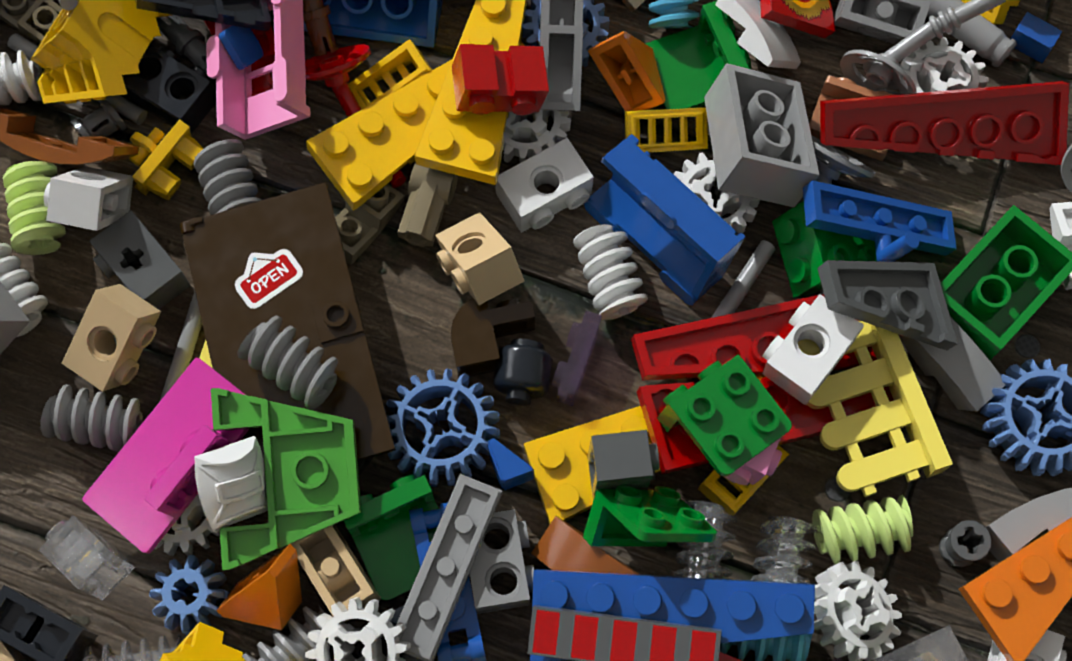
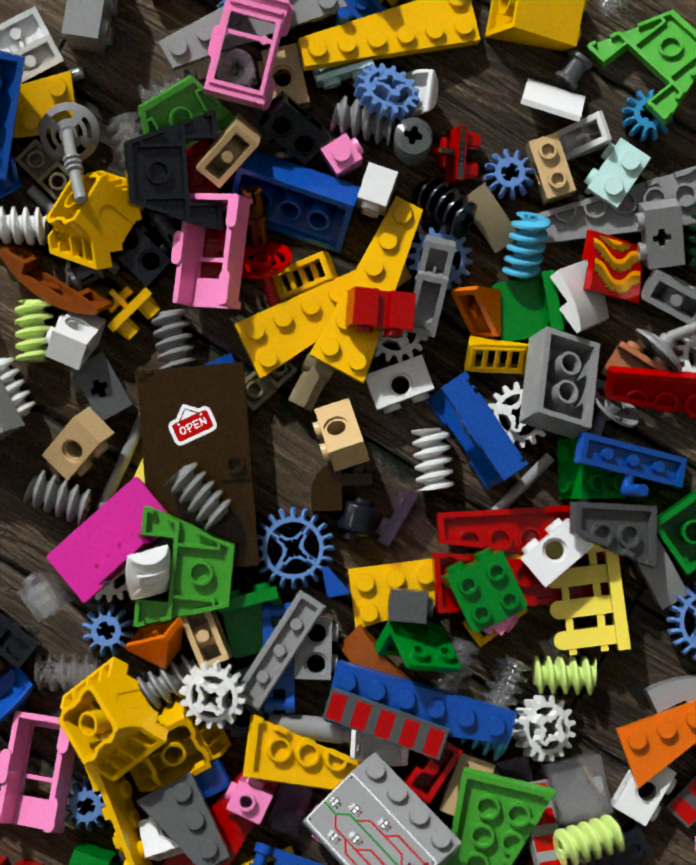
camera: 15 degrees right, 15 degrees up
(241, 46) = (198, 239): blue piece -> none
(970, 532) = (635, 705): dark grey bush -> none

